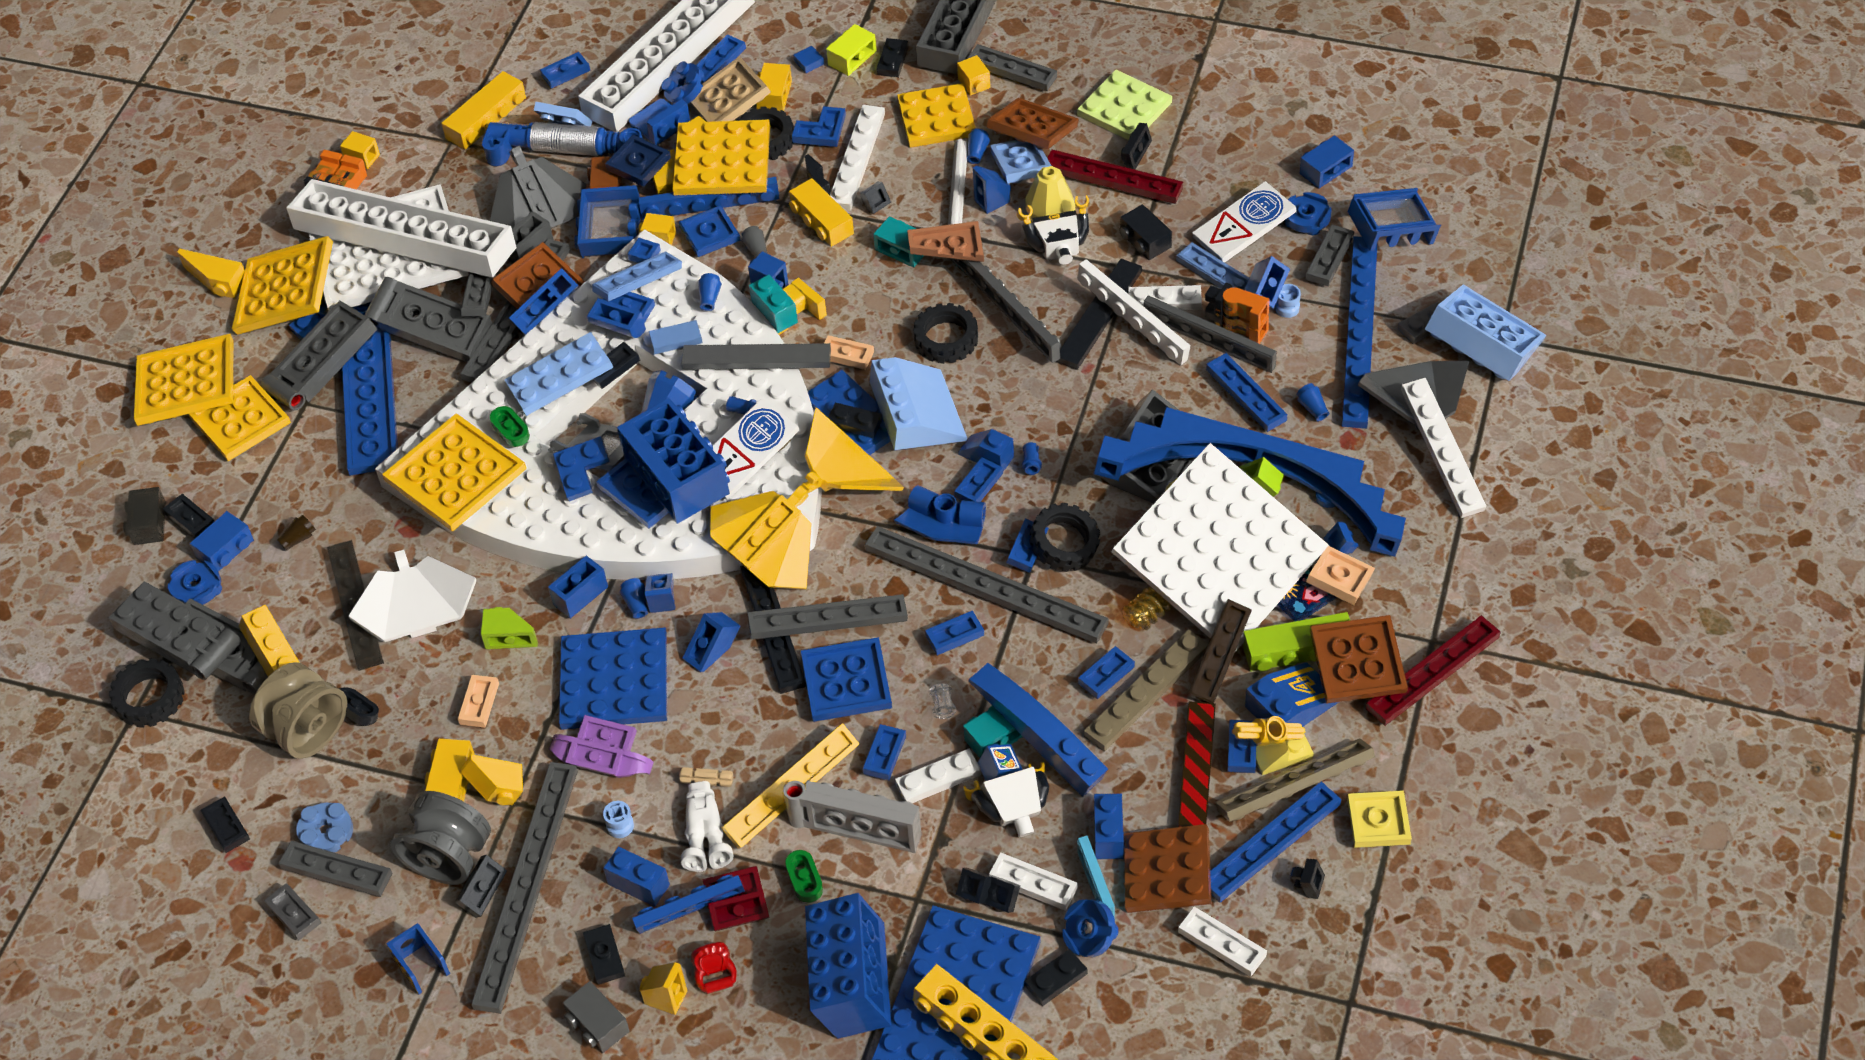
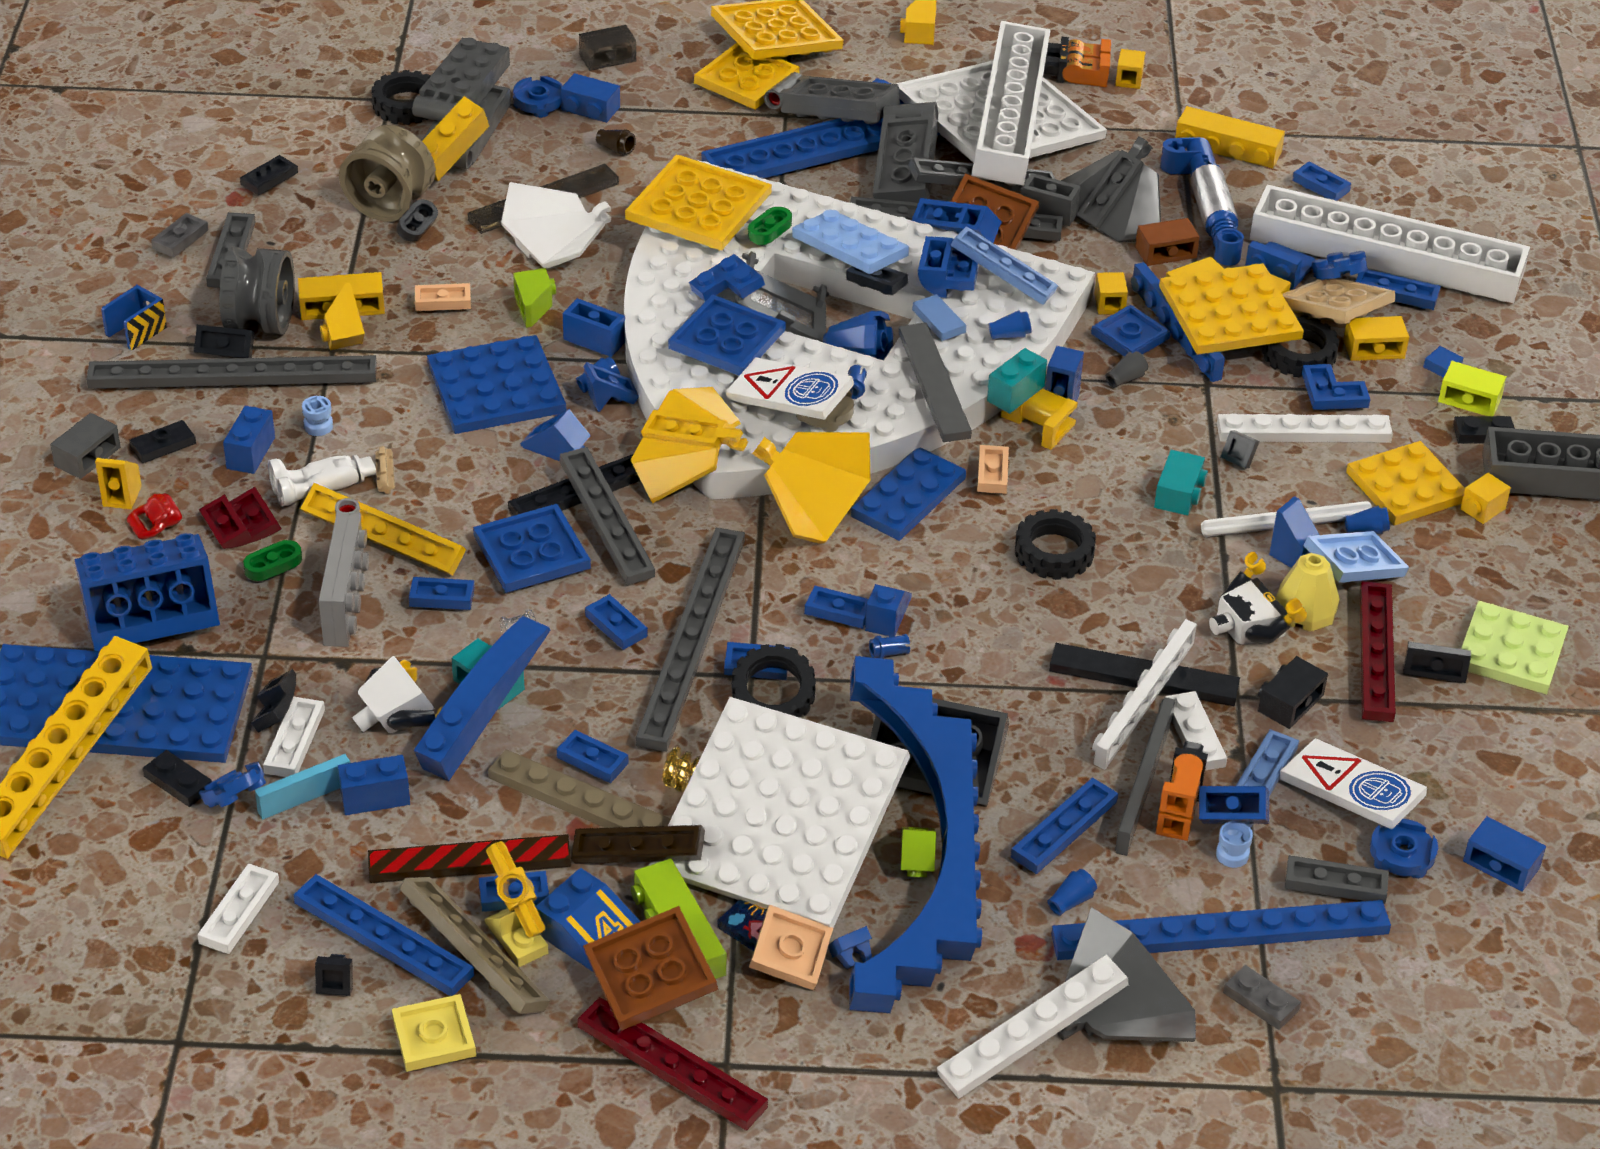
camera: 70 degrees right, 10 degrees down
(188, 515) = (619, 70): black plate -> none
(282, 285) = (917, 56): yellow plate -> none
(322, 814) = (266, 230): medium blue plate -> none
(561, 115) = (1239, 185): light blue plate -> none
(602, 748) = (401, 390): medium lavender plate -> none
(607, 219) = (1106, 247): window -> none
(638, 160) = (1190, 245): dark blue plate -> none
(643, 250) = (1054, 270): blue tile -> none
(674, 460) = (736, 325): blue brick -> none
(678, 907) = (217, 475): blue plate -> none
(815, 171) = (1248, 395): black slope -> none
(821, 212) = (1195, 410): yellow brick -> none
(855, 420) = (886, 485): black plate -> none
(915, 404) = (927, 528): light blue slope -> none
(938, 776) = (420, 643): white plate -> none
(943, 517) = (774, 586): blue panel -> none
(948, 241) = (1177, 505): nougat wing -> none
(998, 761) = (438, 679): blue brick -> none
(1011, 307) = (1122, 576): dark grey plate -> none
(1015, 68) = (1520, 532): dark grey plate -> none
(1032, 123) = (1422, 557): dark orange plate -> none
(1167, 868) = (327, 844): dark orange plate -> none
(1391, 215) = (1426, 927): blue window -> none
(1484, 332) = (1261, 1053): light blue slope -> none

